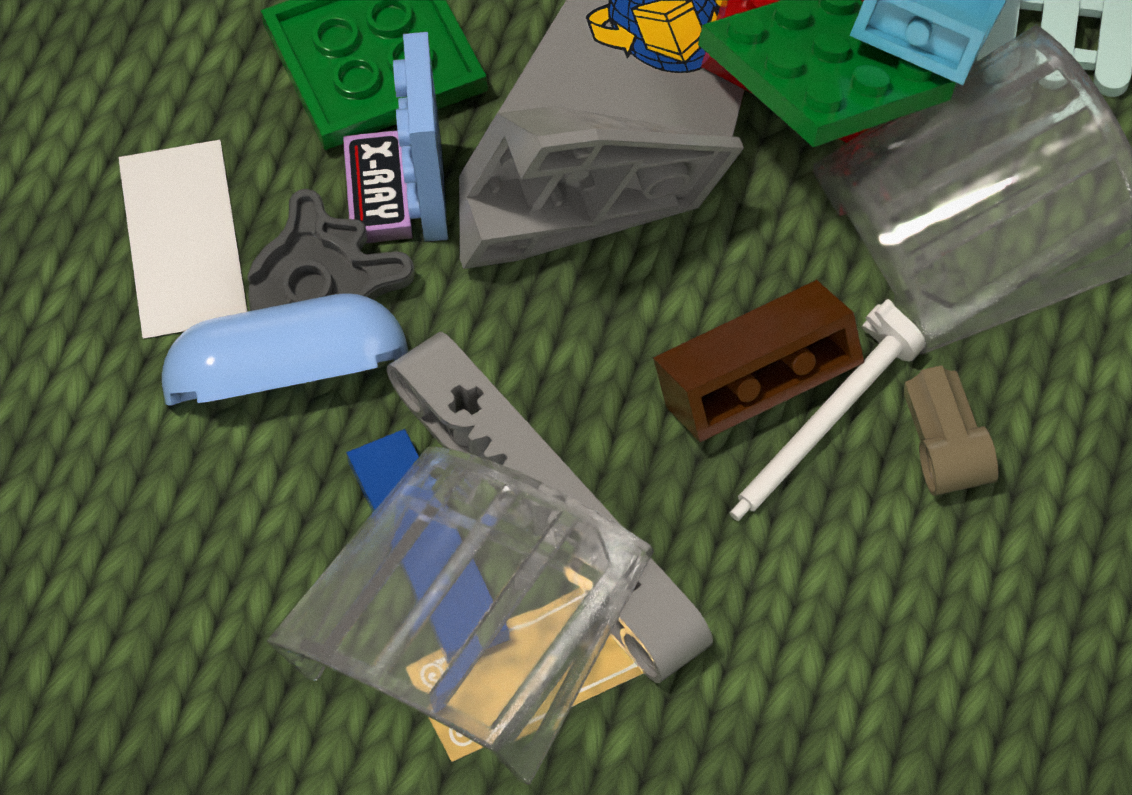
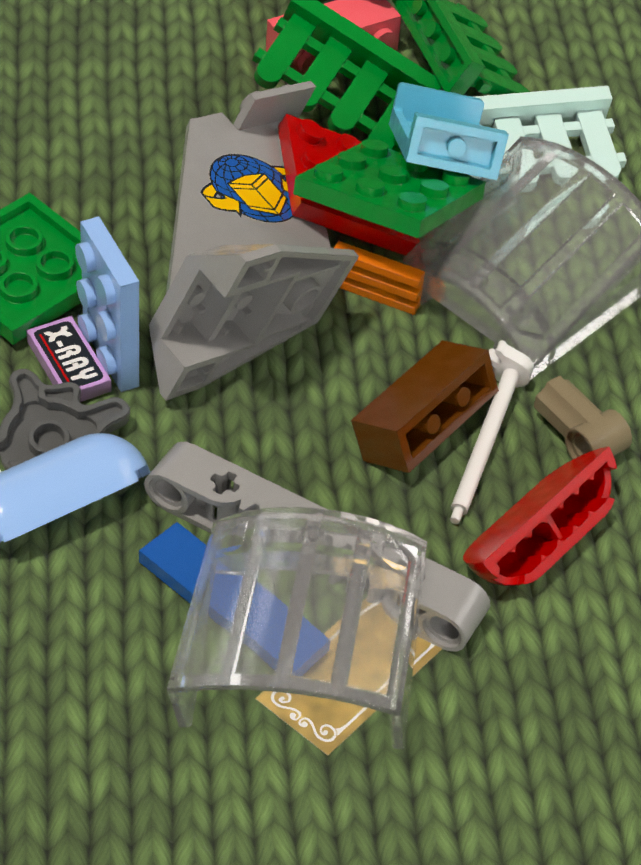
camera: 30 degrees left, 10 degrees down
(788, 169) = (384, 280): none -> orange tile
(833, 553) = (545, 522): none -> red brick

